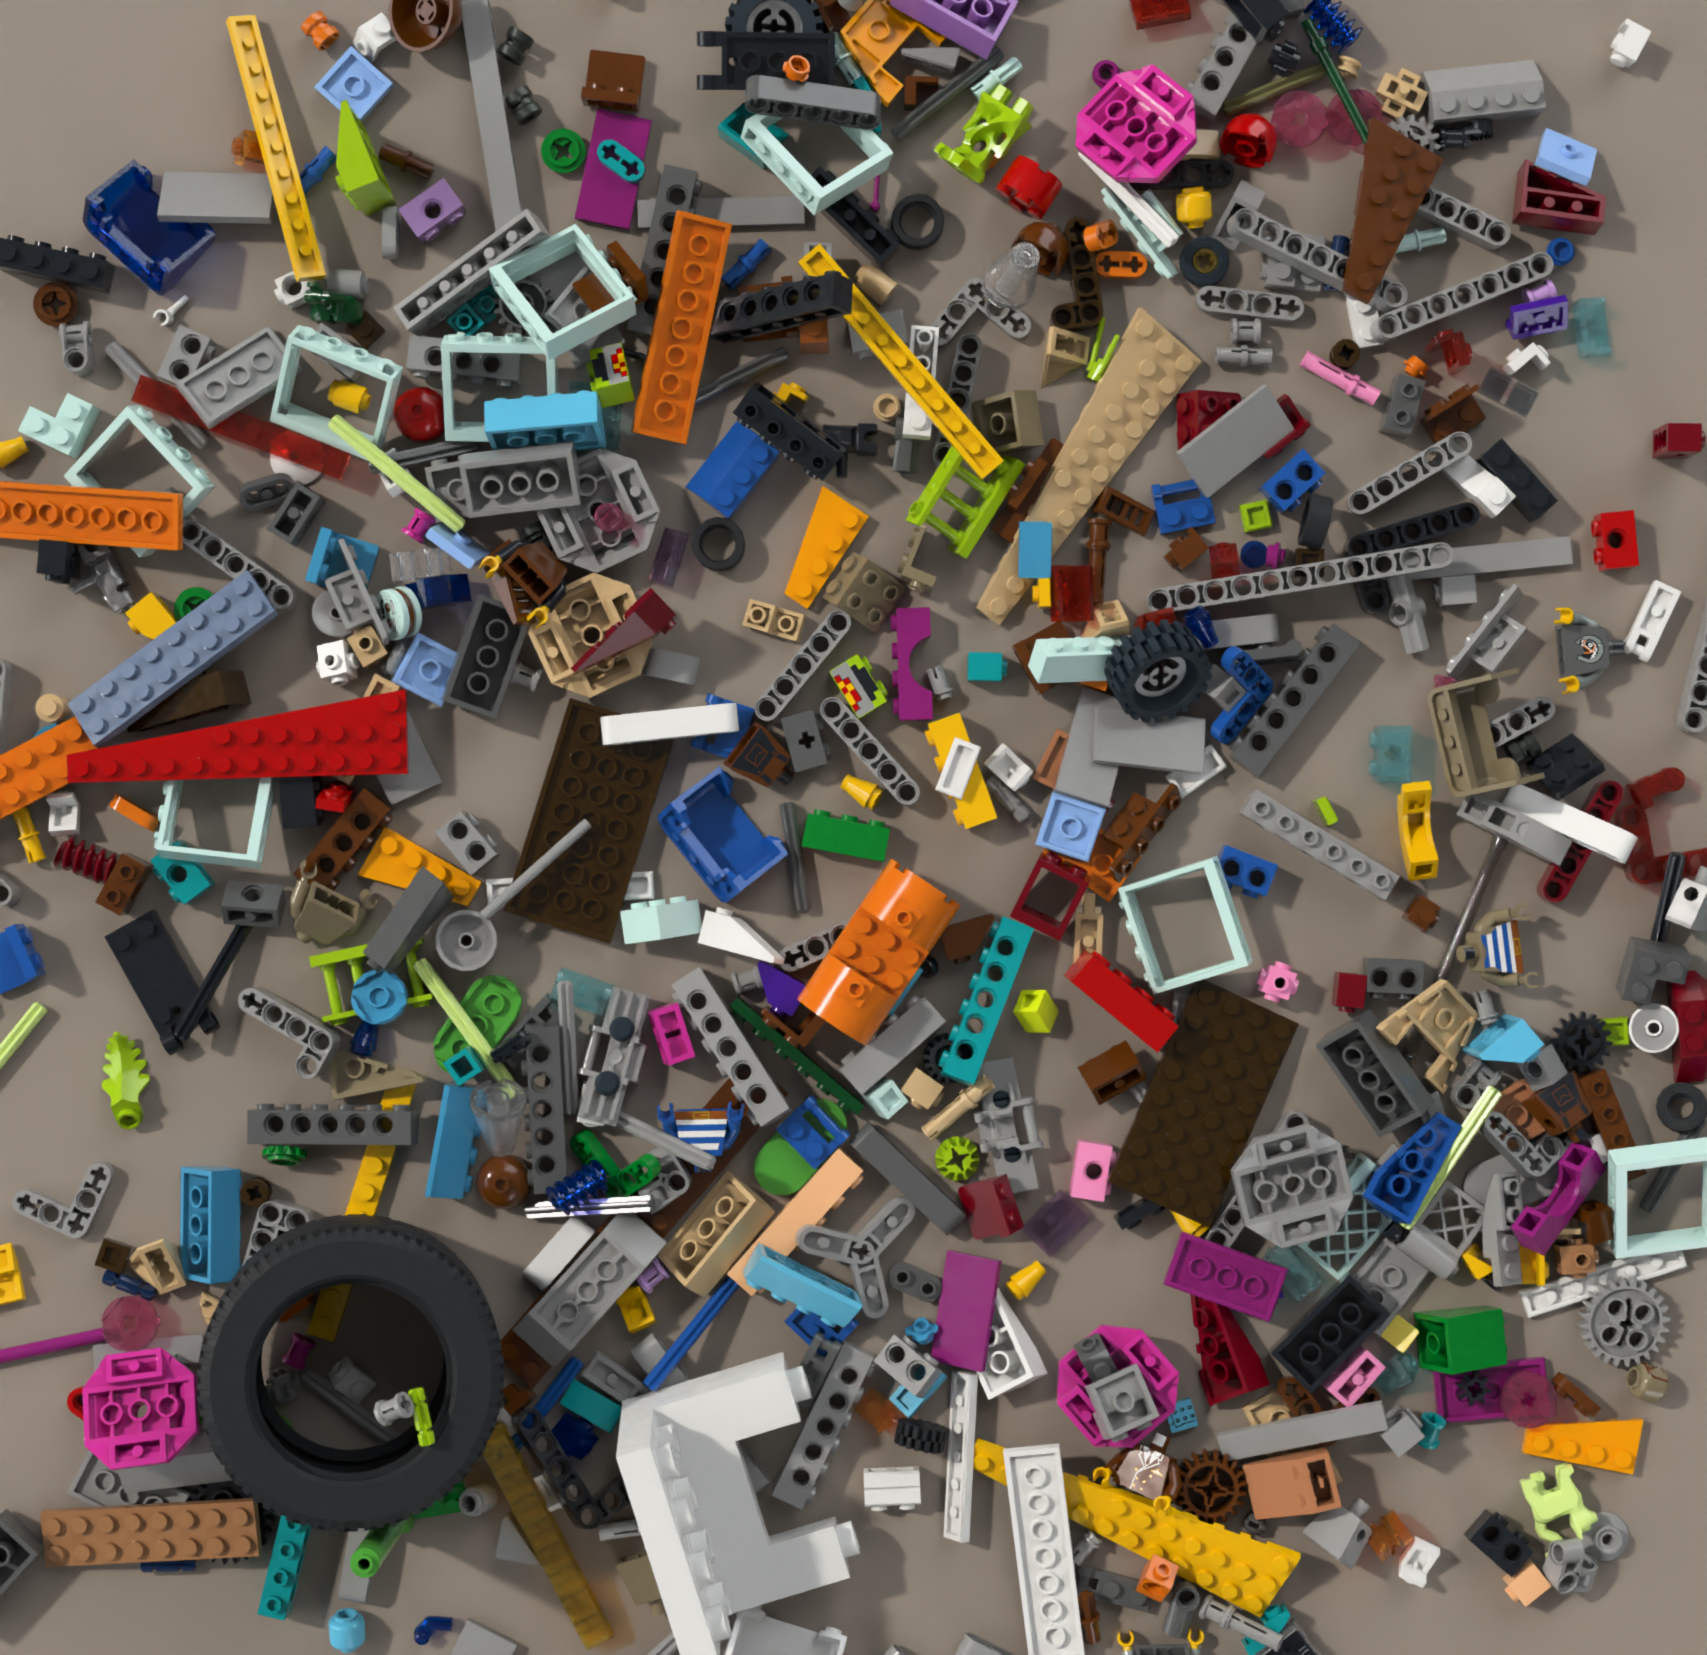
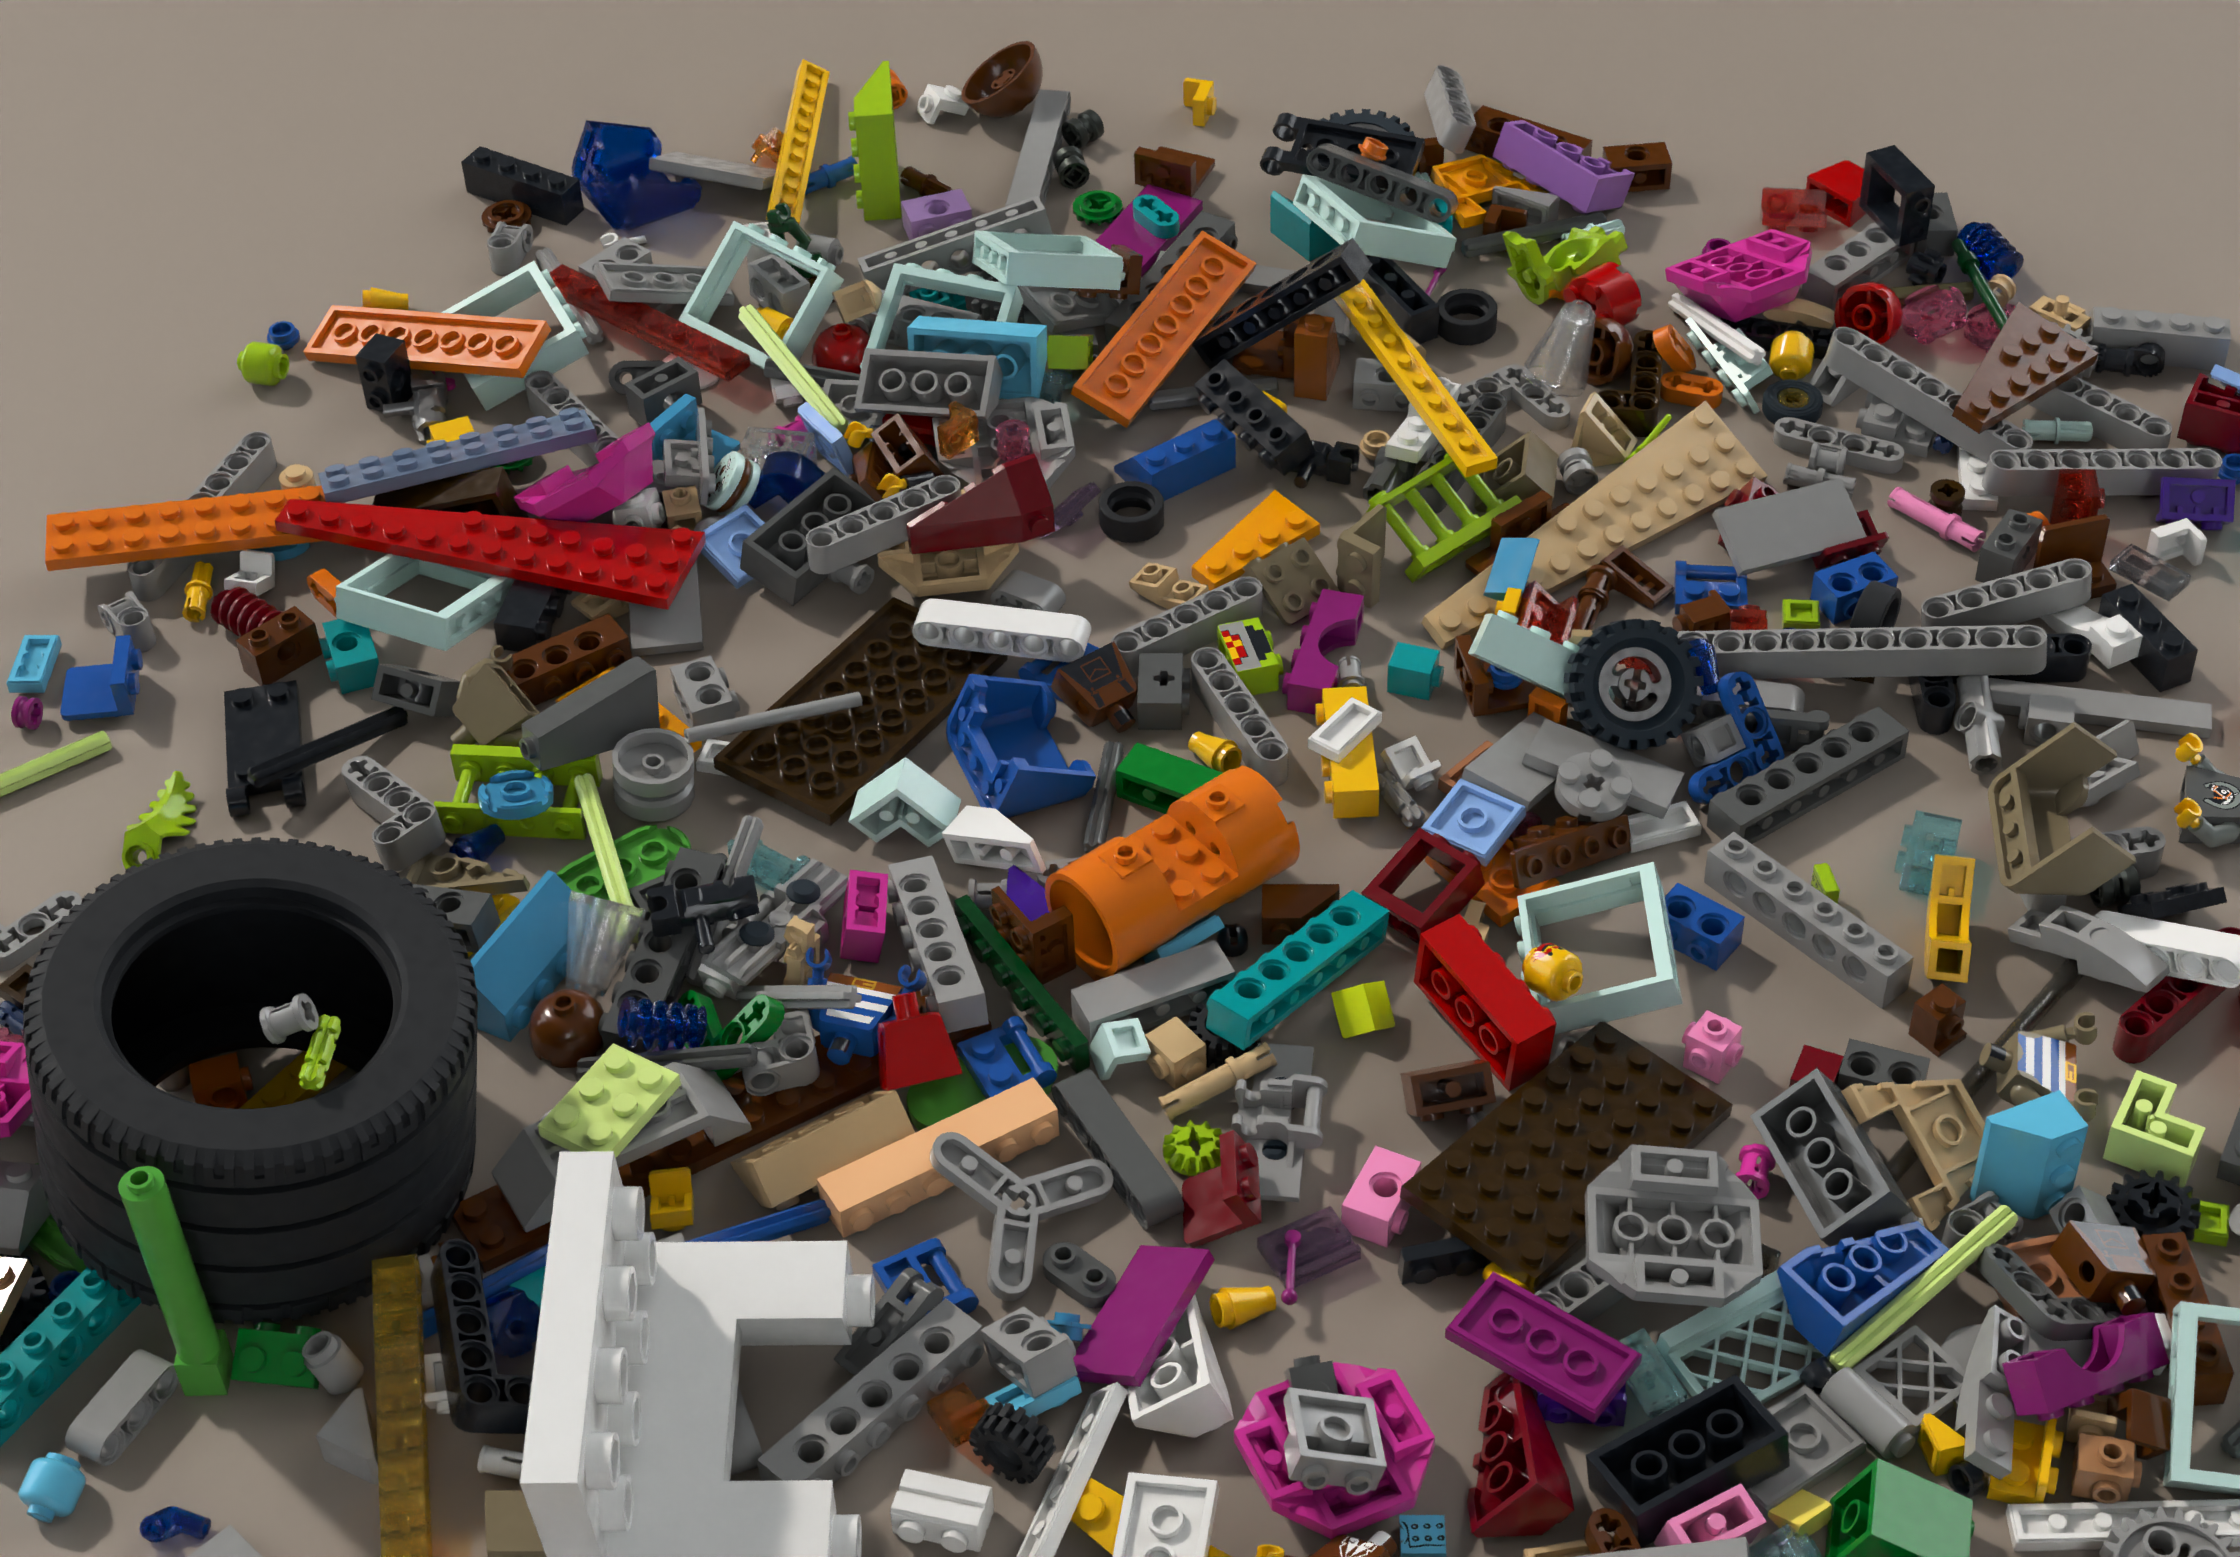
camera: 15 degrees right, 45 degrees down
(67, 430) = (438, 288): light aqua brick -> none
(289, 661) = (586, 493): none -> dark pink piece
(335, 797) = (566, 607): red plate -> none
(356, 81) = (914, 128): light blue plate -> none
(390, 232) = (884, 226): light grey beam -> none
(422, 382) = (857, 300): none -> tan plate
(464, 1065) = (584, 872): teal brick -> none
(510, 1046) = (652, 866): black axle -> none
(535, 665) = (875, 526): none -> light grey beam
(565, 536) = (959, 431): none -> clear orange bracket
(565, 1083) = (701, 907): none -> black piece
(578, 1283) = (609, 1103): none -> yellowish green plate
(647, 1098) = (801, 937): none -> tan hinge
(653, 1275) = (713, 1173): lavender bush -> none
(755, 1157) = (914, 1046): none -> red torso
(802, 1286) = (916, 1195): medium azure slope -> none
(1045, 1226) = (1292, 1239): none -> magenta hinge
(1051, 393) = (1577, 470): none -> light grey wheel
(1164, 972) = (1552, 972): none -> yellow head
(1166, 777) = (1596, 768): none -> light grey plate
(1323, 1079) = (1757, 1172): none -> dark pink bush
(1567, 980) = (2149, 1137): none -> yellowish green brick

